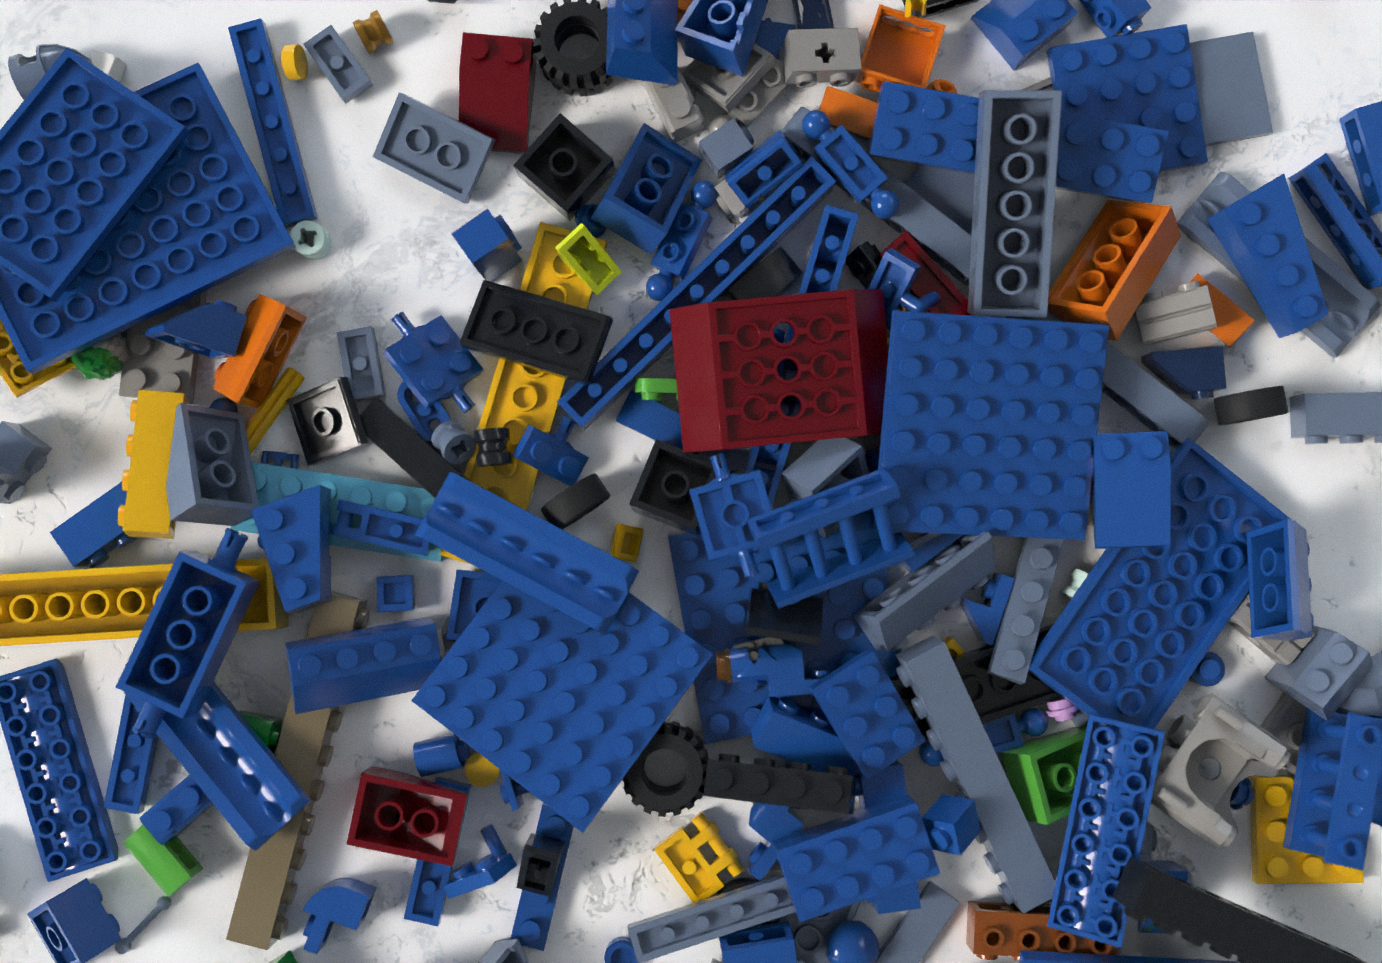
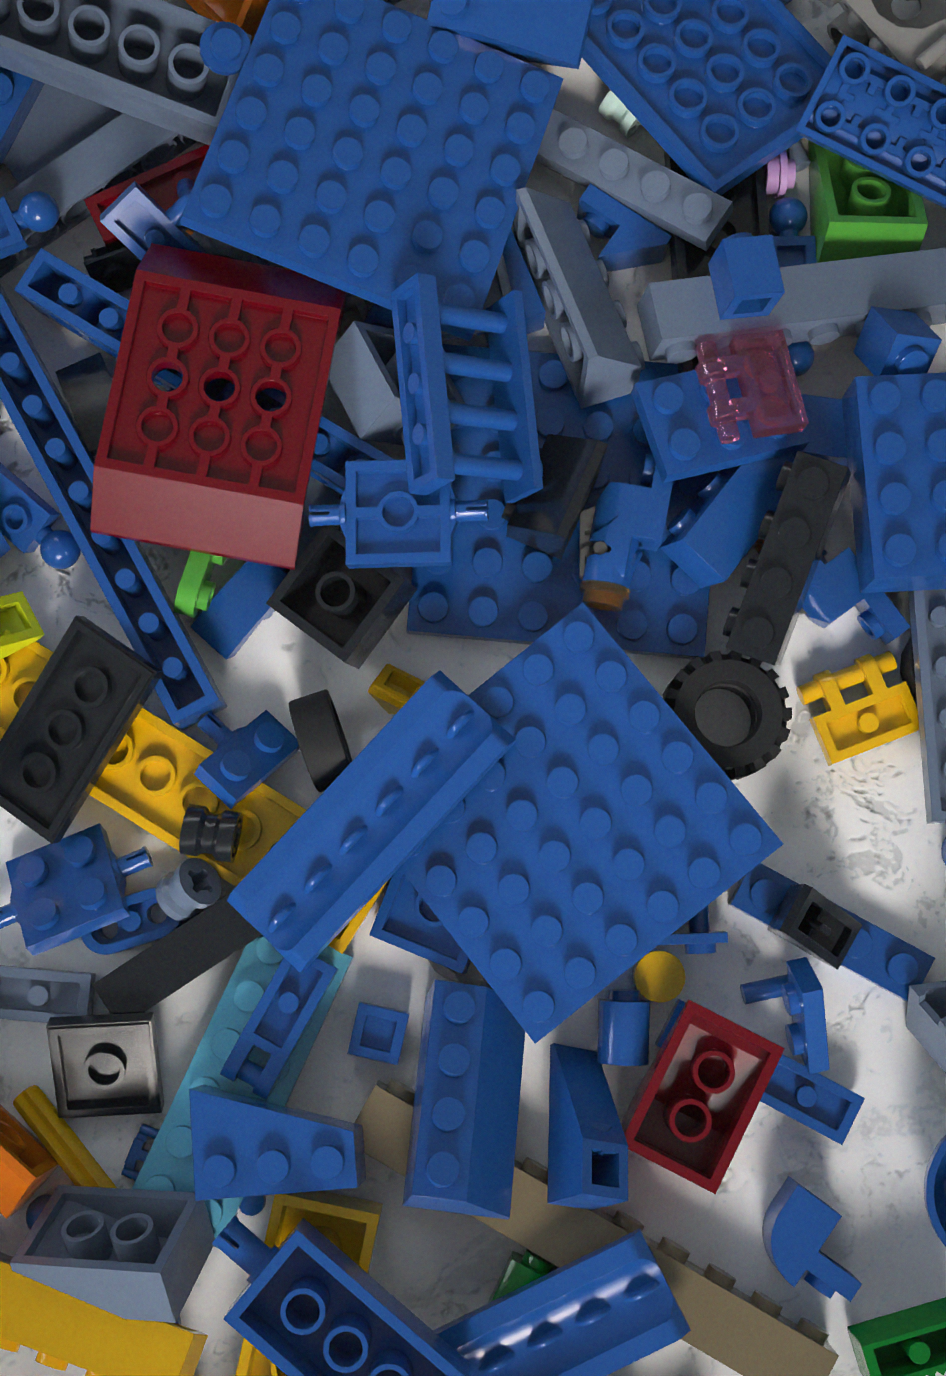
camera: 75 degrees left, 5 degrees down
(362, 748) = (584, 1134): none -> blue slope
(894, 742) = (766, 383): none -> clear pink plate
(966, 708) = (746, 276): none -> blue brick
(1029, 302) = (224, 47): none -> blue plate

